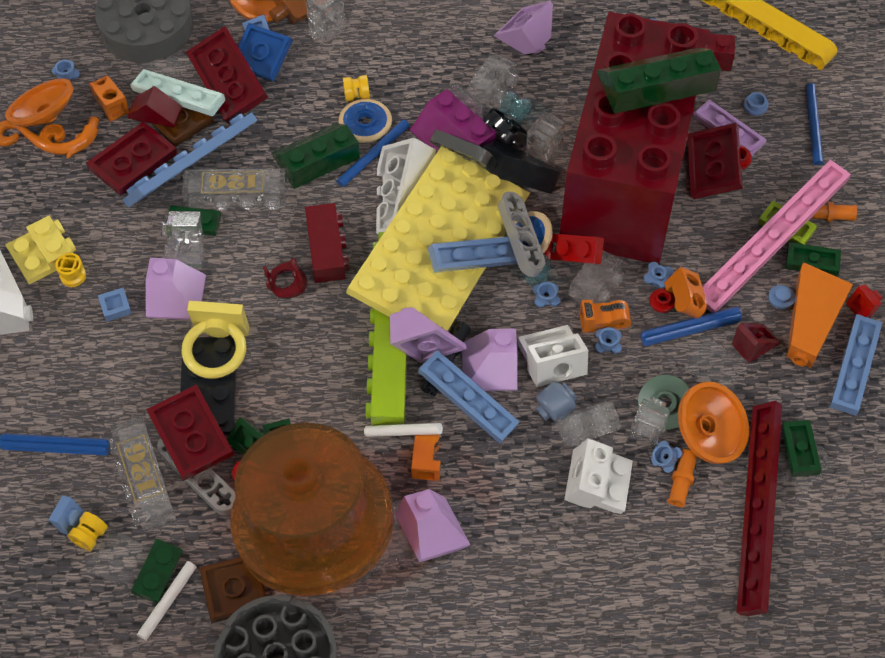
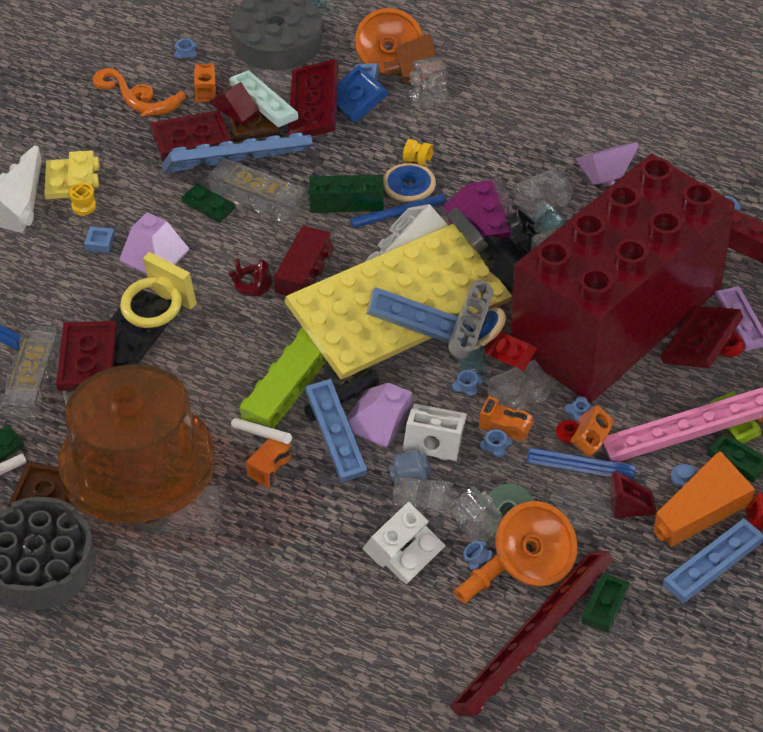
camera: 30 degrees right, 10 degrees down
(40, 103) = (145, 66): orange dish -> none
(184, 238) = (185, 209): clear brick -> none
(421, 336) = (323, 360): lavender slope -> none
(430, 525) = (233, 512): lavender slope -> none
(660, 79) = (644, 219): dark green slope -> none

